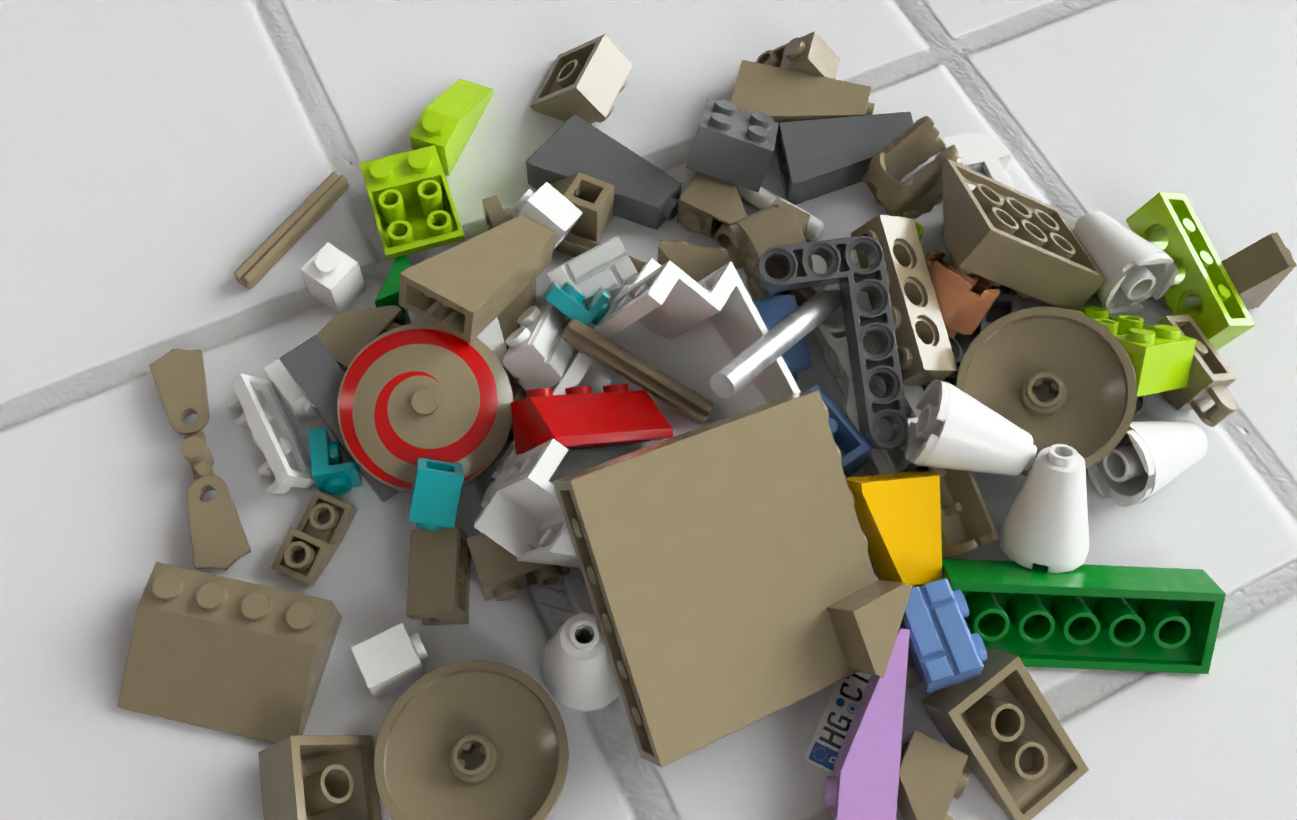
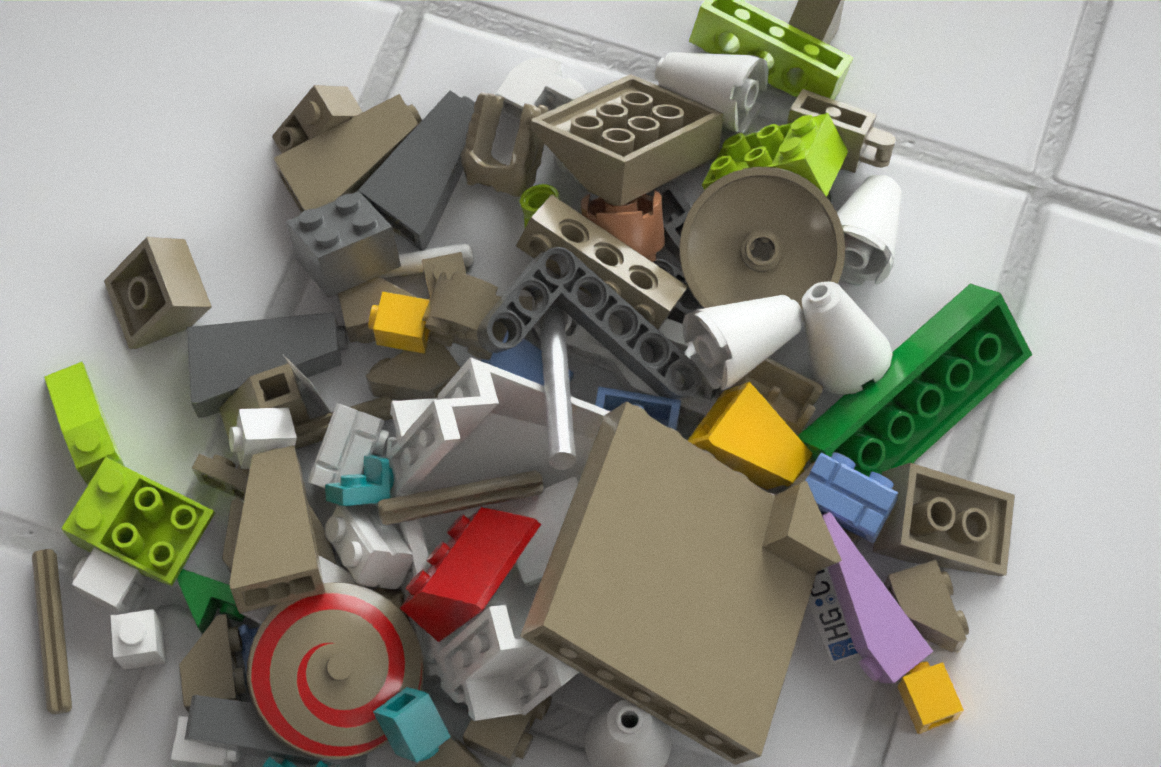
camera: 40 degrees left, 5 degrees up
(356, 228) = (107, 581): none -> white brick
(609, 201) = (308, 385): none -> white sticker
(710, 218) = (399, 322): none -> yellow brick

